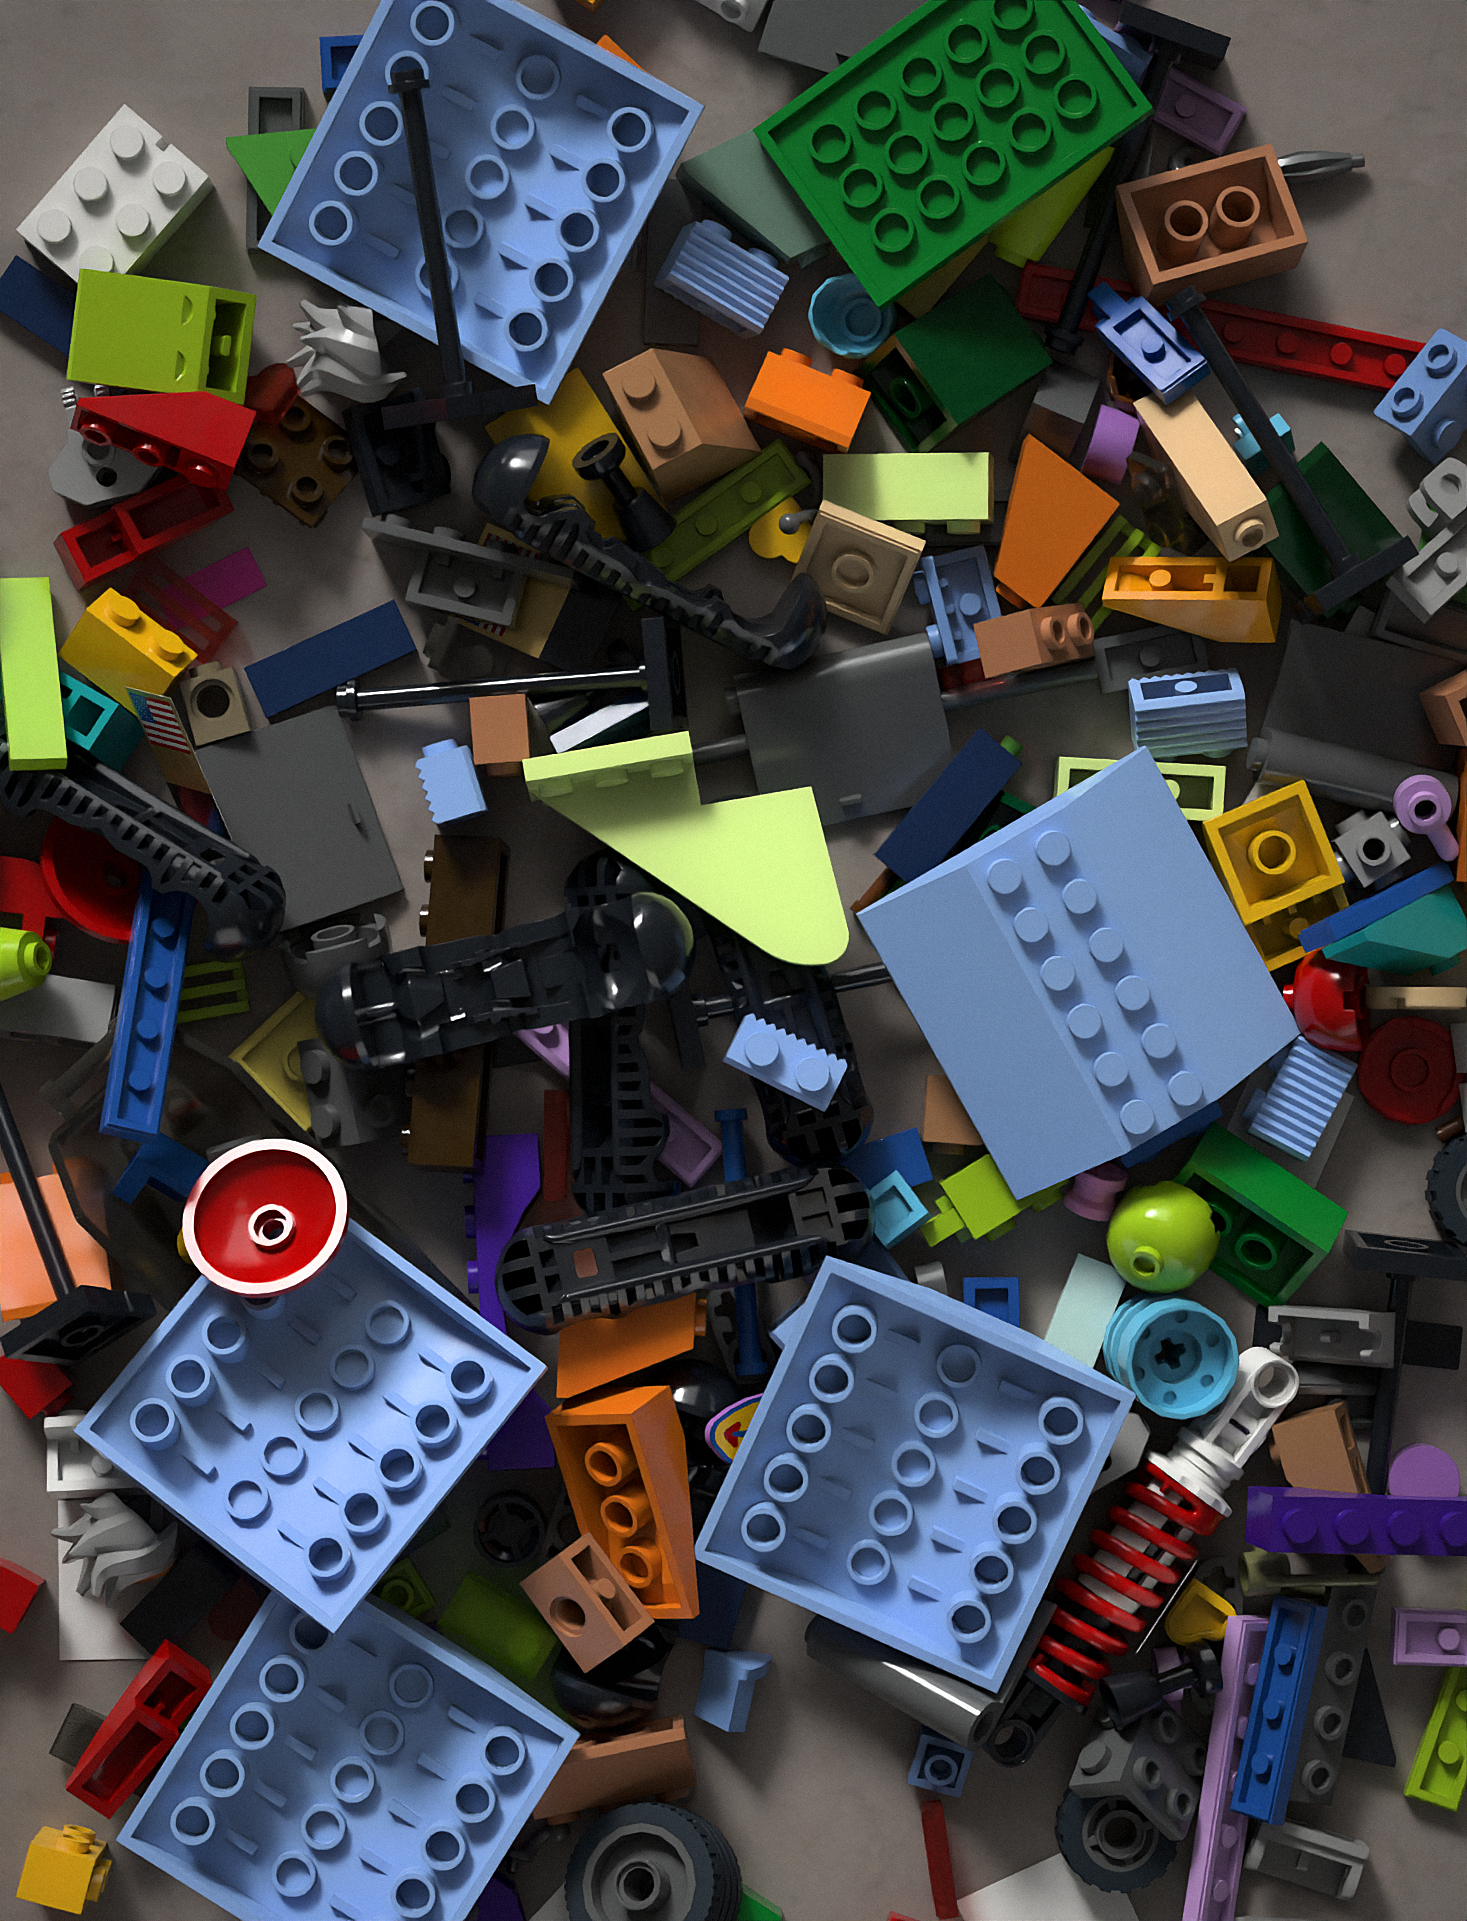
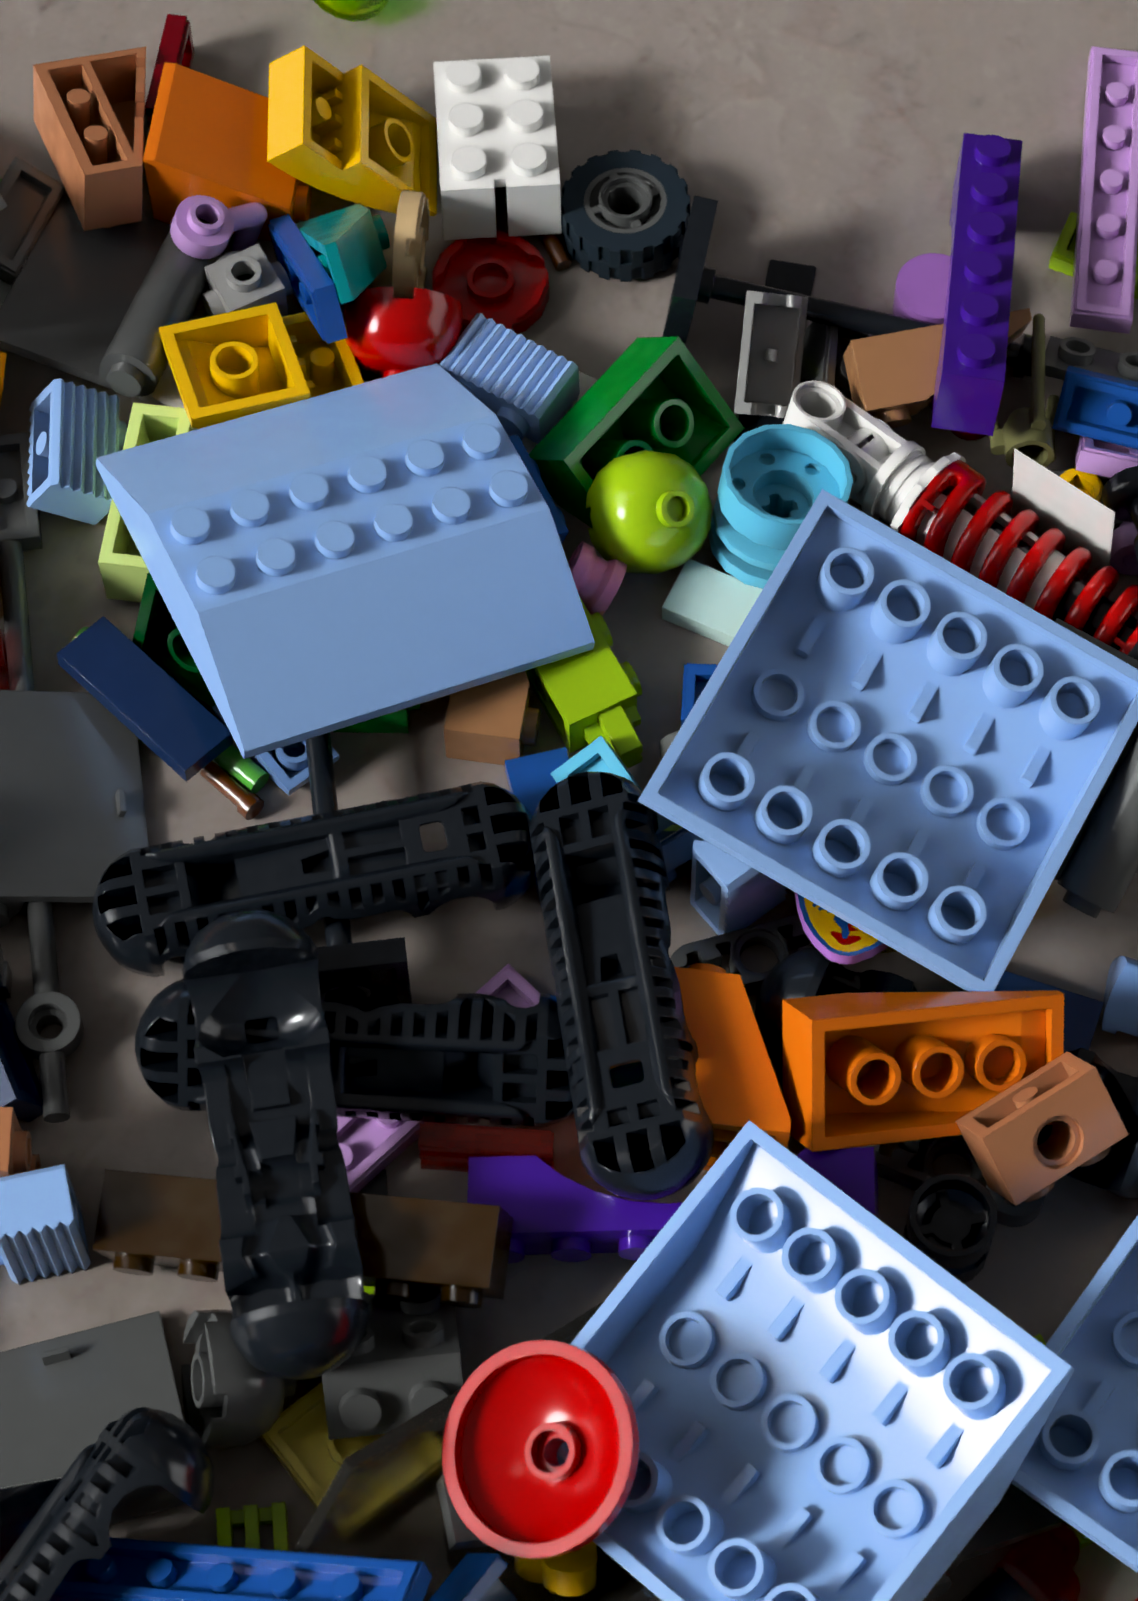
camera: 85 degrees left, 25 degrees down
(499, 1625) = (1066, 1251): clear neon green brick -> none
(742, 860) = (160, 876): yellowish green piece -> none
(745, 1295) = (682, 946): blue bar -> none
(785, 1062) = (406, 839): light blue brick -> none

